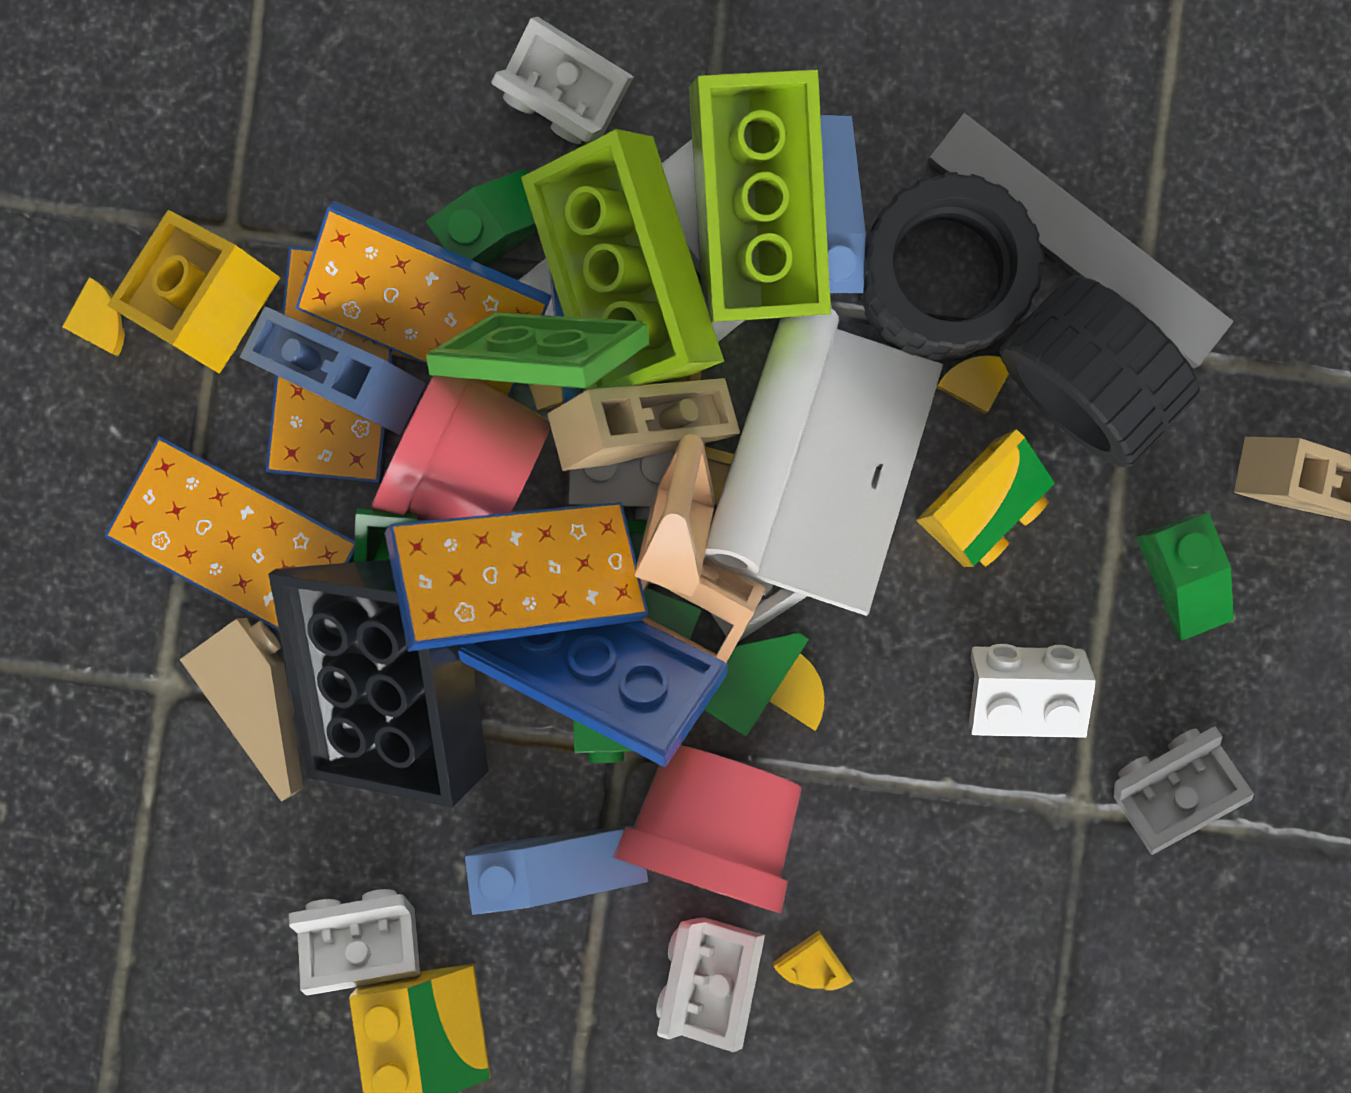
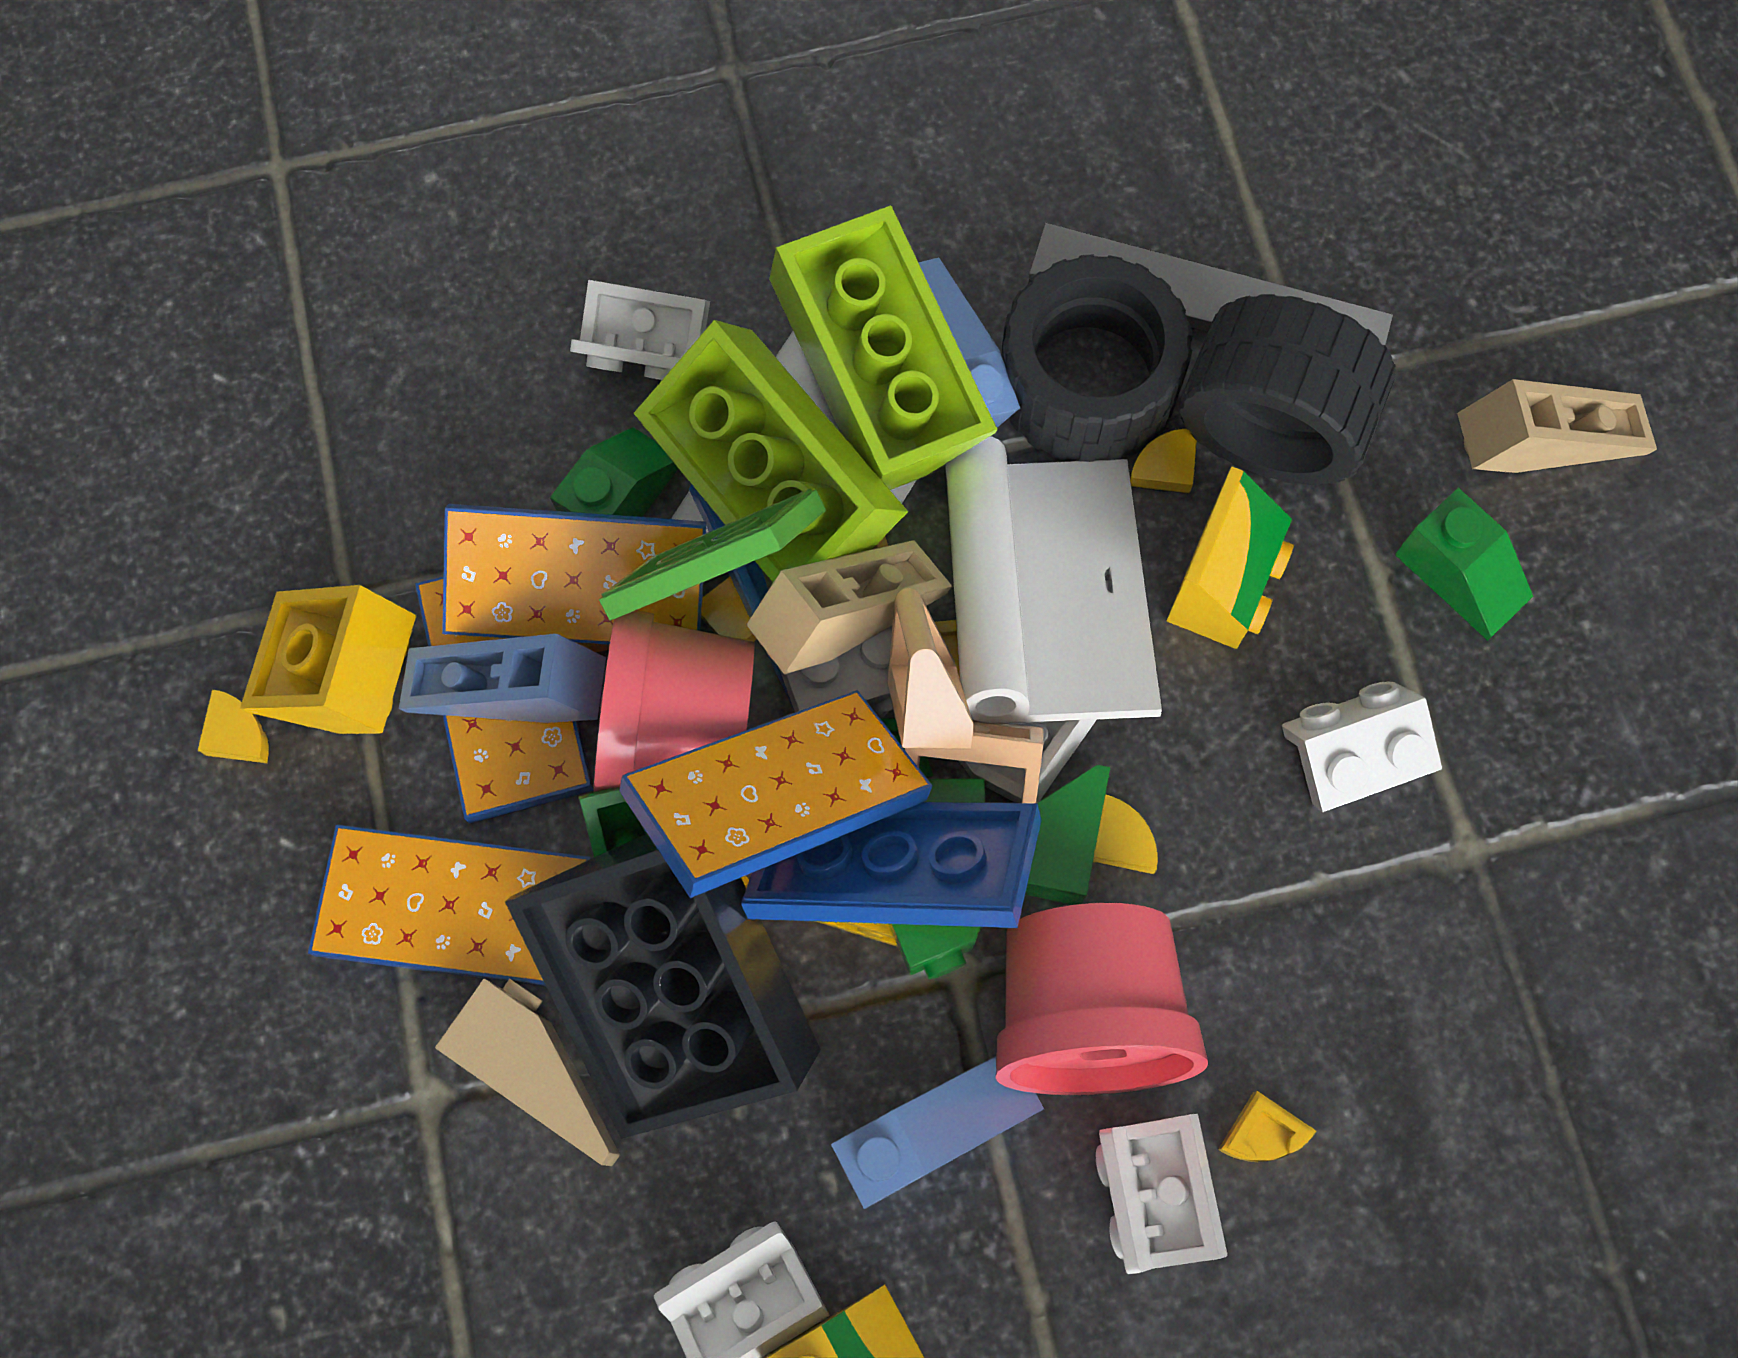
camera: 25 degrees left, 15 degrees down
(1180, 789) = (1564, 783): light grey bracket -> none

